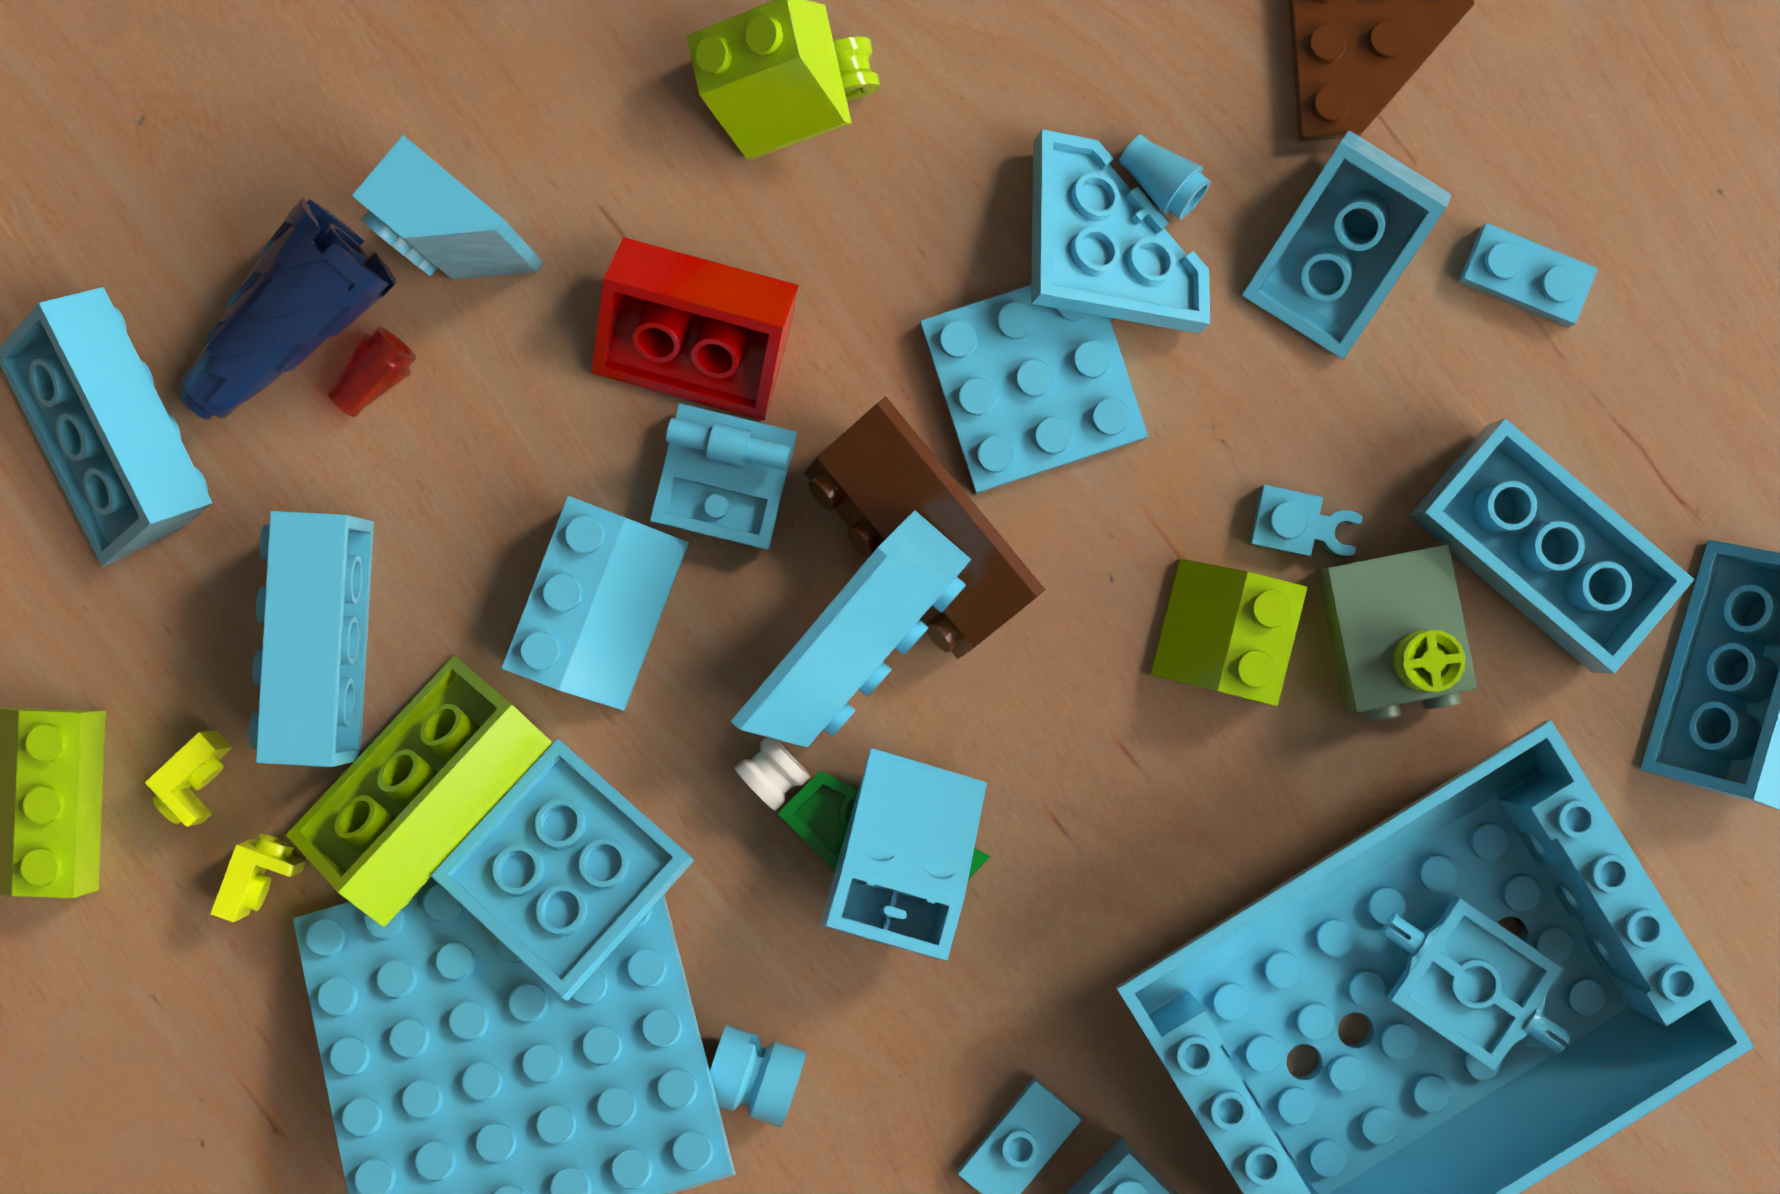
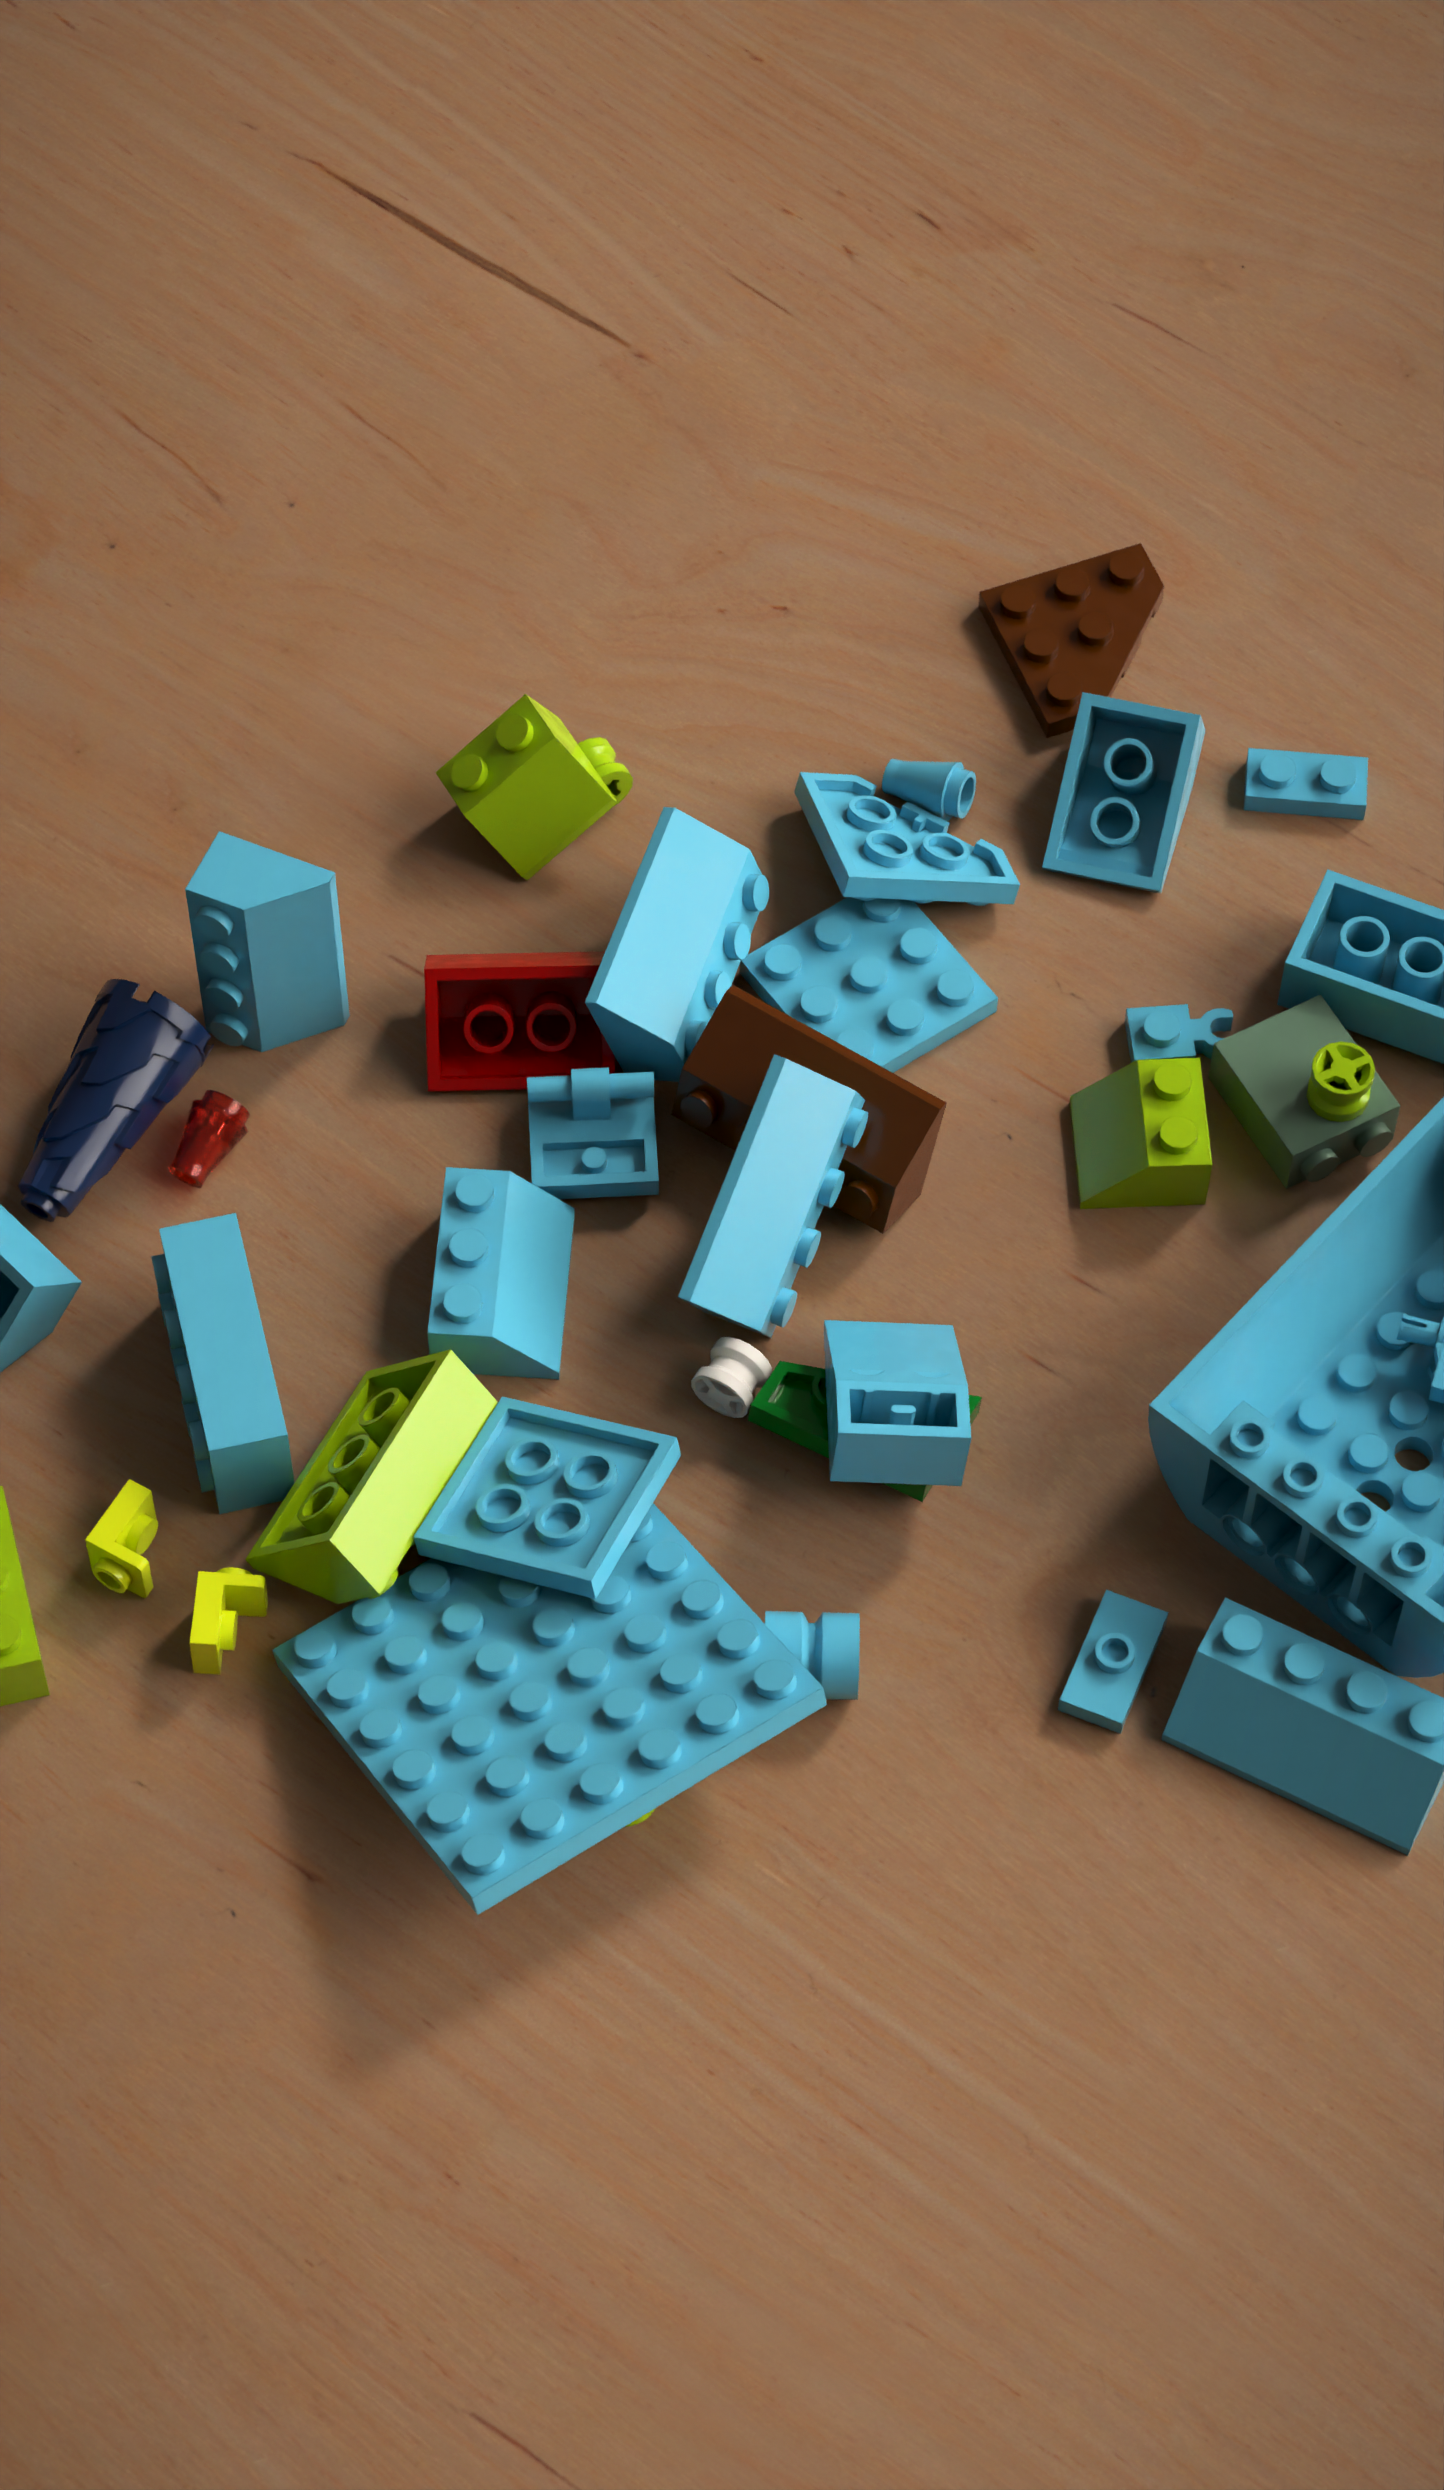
camera: 20 degrees left, 30 degrees down
(858, 308) = (676, 944): none -> medium azure slope

